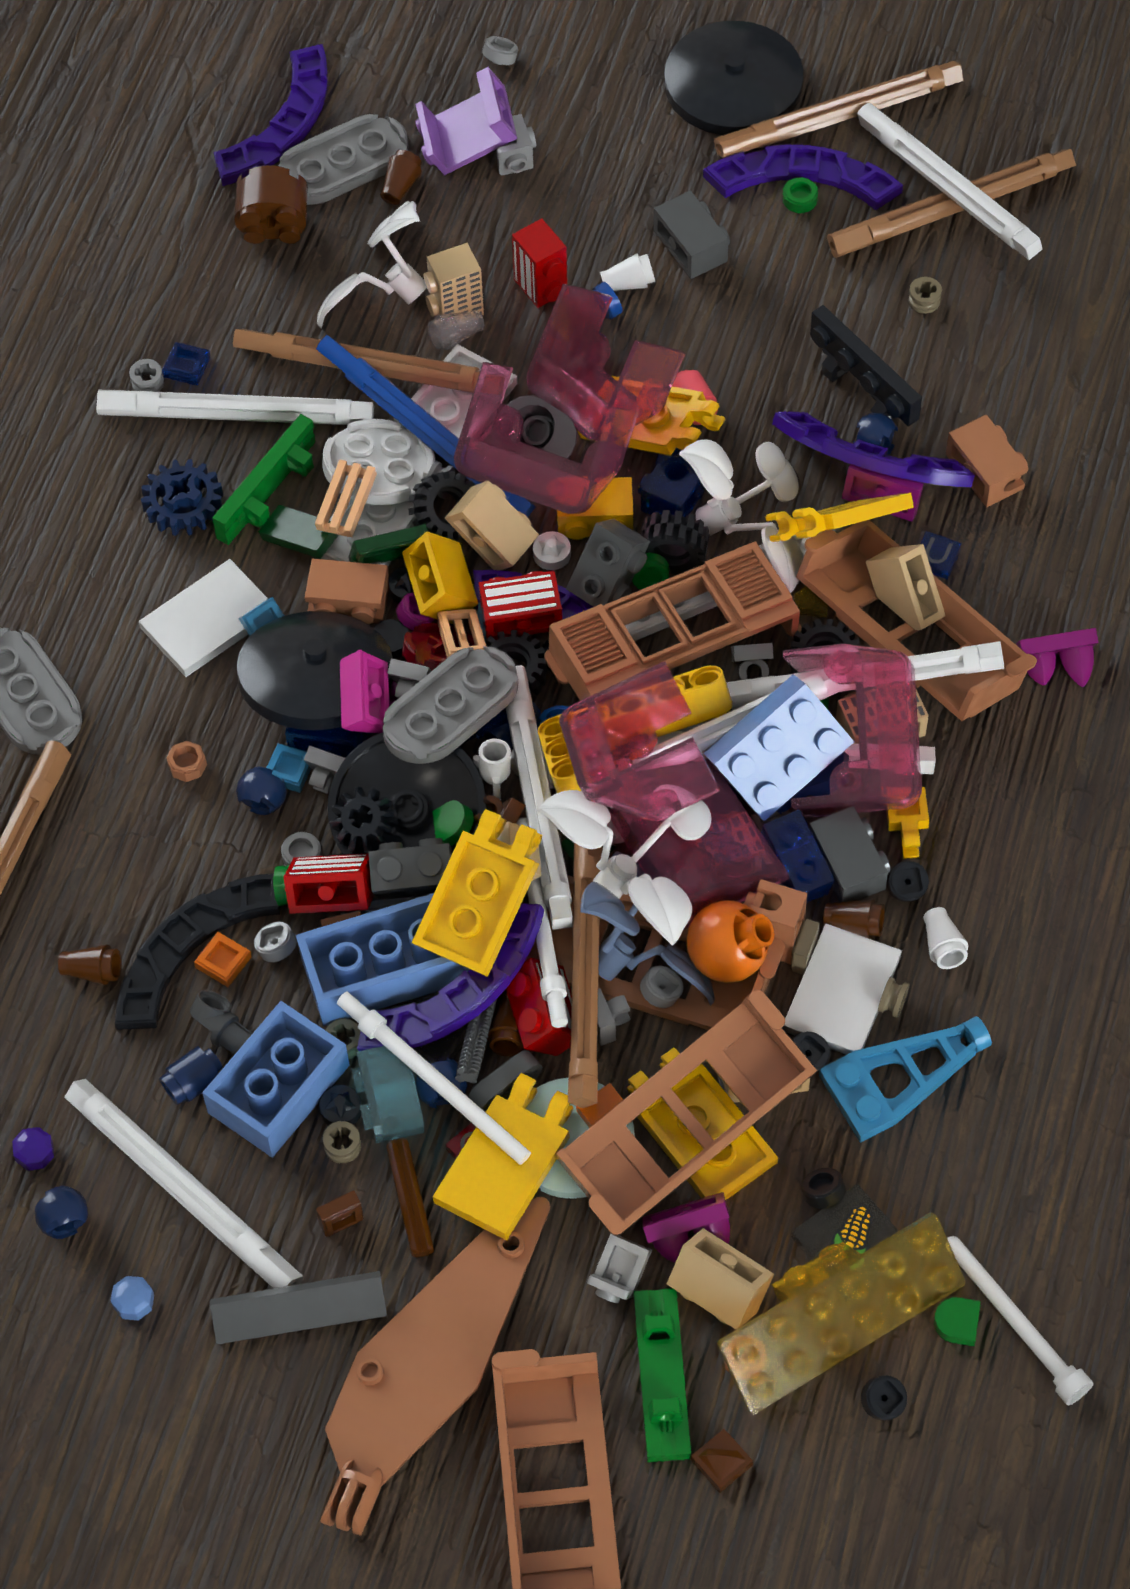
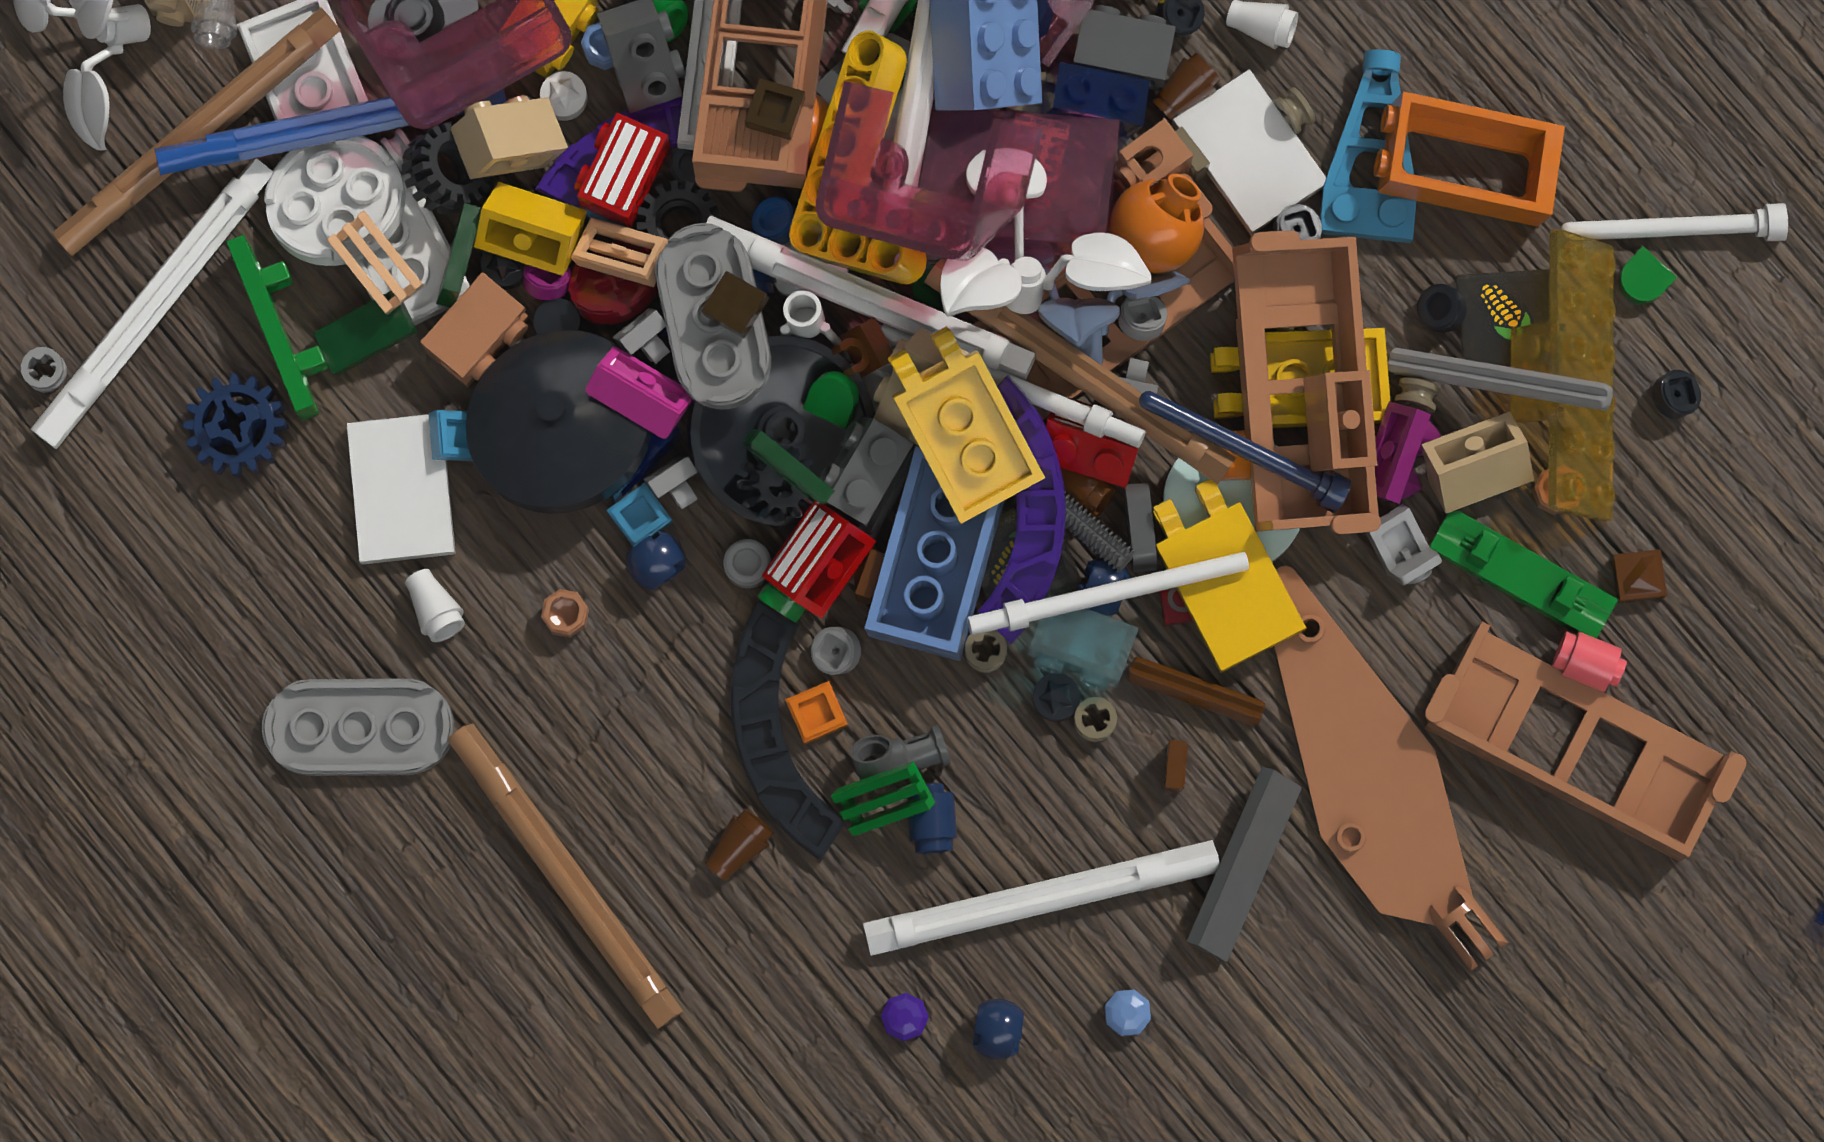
camera: 60 degrees left, 20 degrees up
(135, 683) = (434, 607): none -> white cone
(166, 1021) = (855, 810): none -> green tile
(186, 363) = (54, 317): clear blue tile -> none
(276, 1078) = (998, 740): medium blue brick -> none
(370, 803) = (787, 467): none -> dark green tile
(464, 705) = (735, 304): none -> dark brown tile
(619, 1182) = (1327, 489): none -> dark blue piece
(622, 649) = (775, 109): none -> dark brown tile
(626, 1460) = (1589, 661): none -> coral brick
(673, 1150) = (1340, 420): none -> nougat brick
(743, 1210) = (1417, 394): none -> dark tan bush
(792, 1249) = (1500, 379): none -> light grey axle
(952, 1073) = (1532, 138): none -> orange piece

